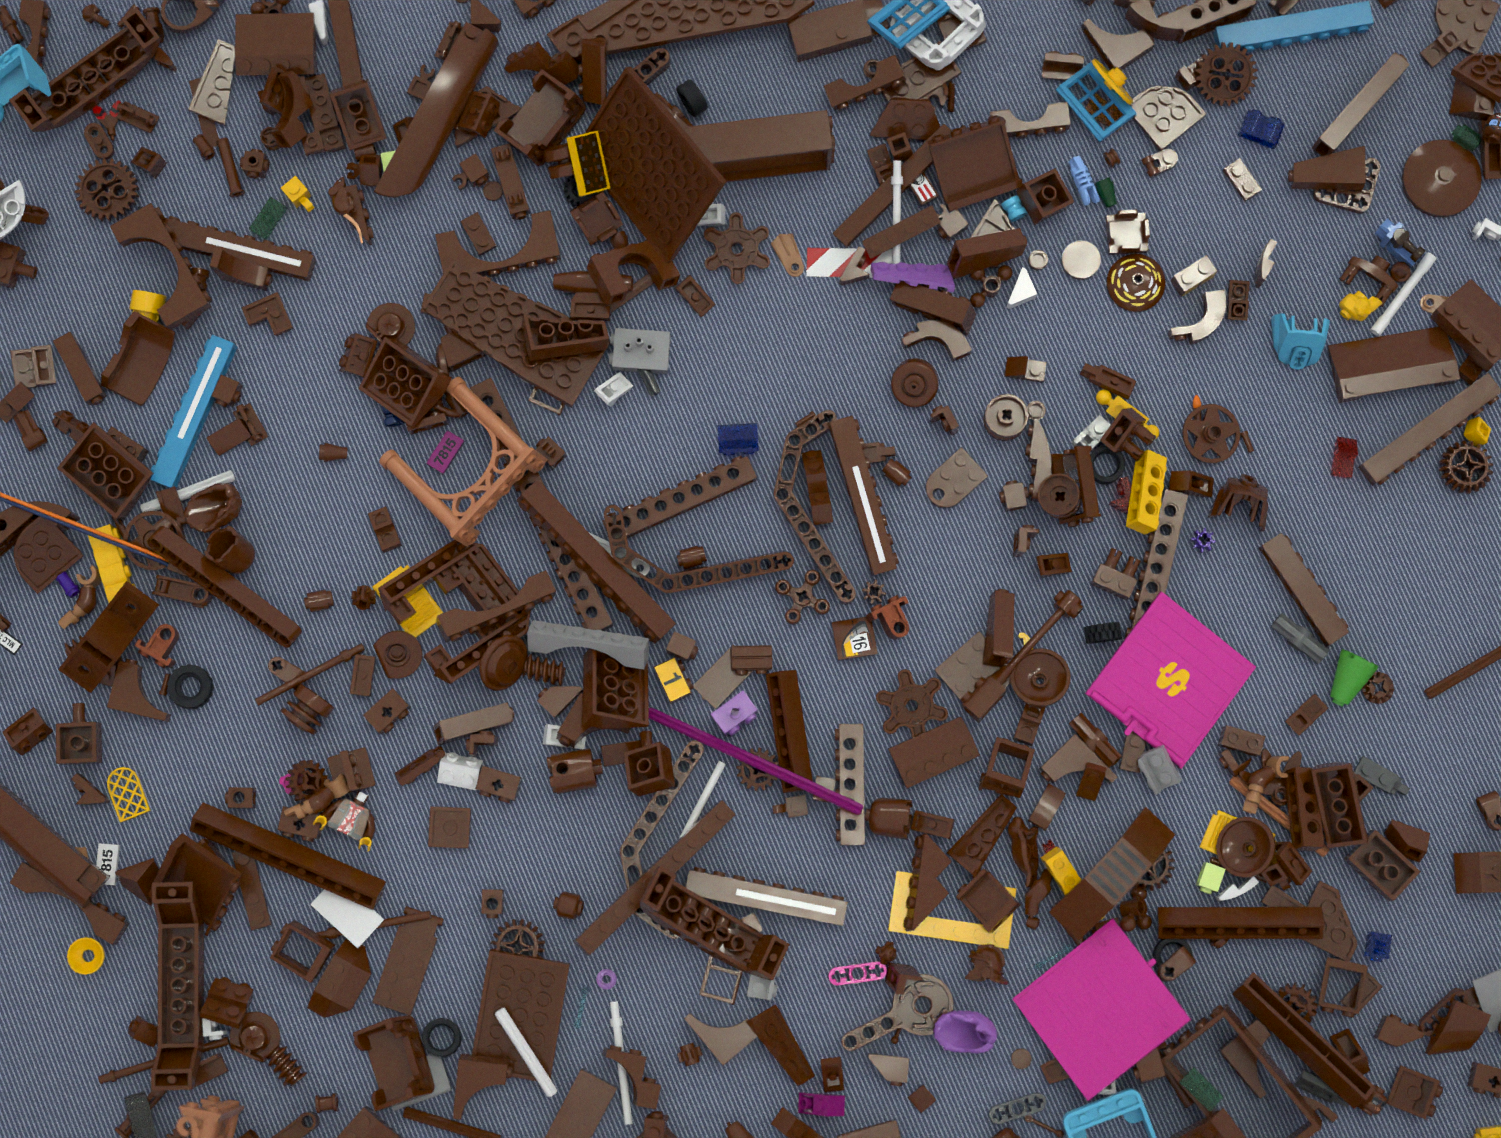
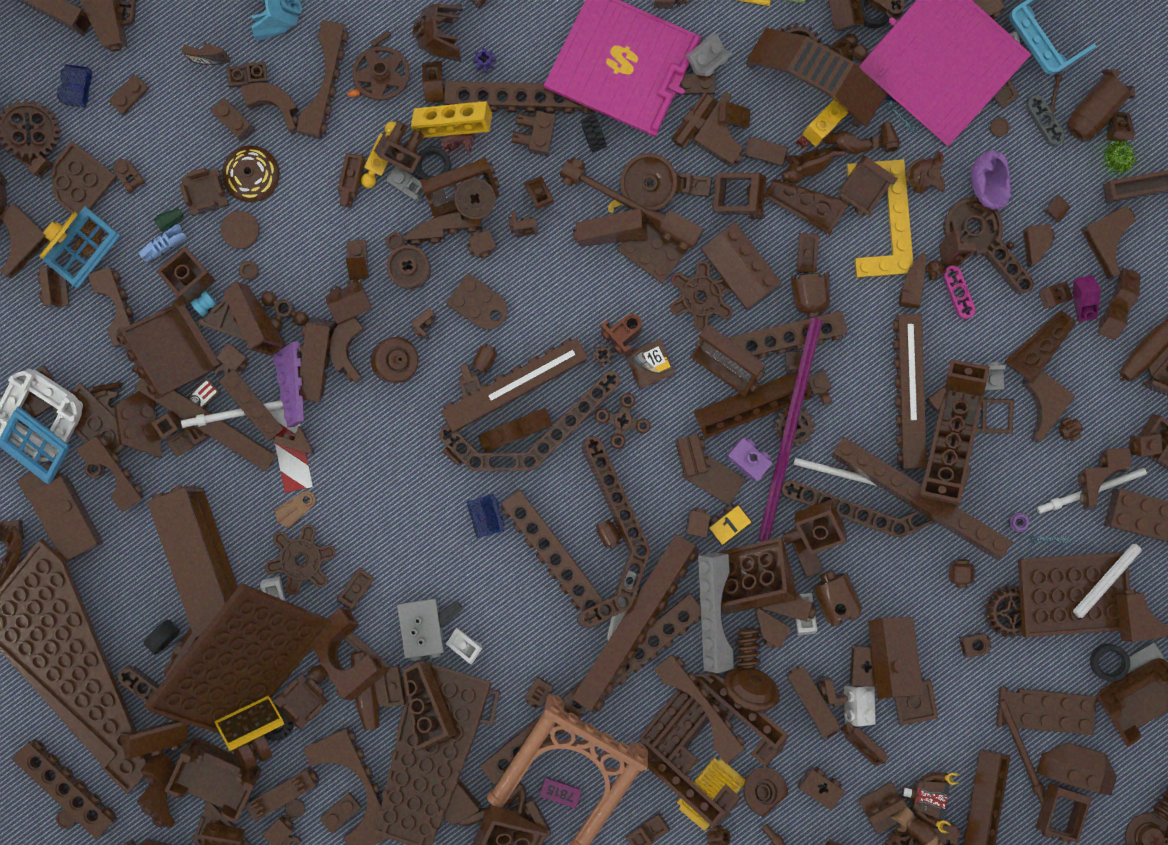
camera: 105 degrees left, 5 degrees up
(347, 916) = (1022, 776): white sticker -> none
(362, 675) = (791, 819): reddish brown plate -> none
(500, 814) = (895, 657): none -> reddish brown brick
(838, 714) = (728, 361): none -> reddish brown door
(876, 926) = (912, 289): none -> reddish brown piece
(925, 889) = (870, 246): reddish brown slope -> none
(983, 349) = (348, 301): none -> reddish brown brick
(1023, 290) = (281, 278): white slope -> none
(1033, 938) = (889, 139): none -> reddish brown cone
(1111, 158) = (134, 221): reddish brown bush -> none
(1254, 391) = (313, 118): none -> reddish brown arch

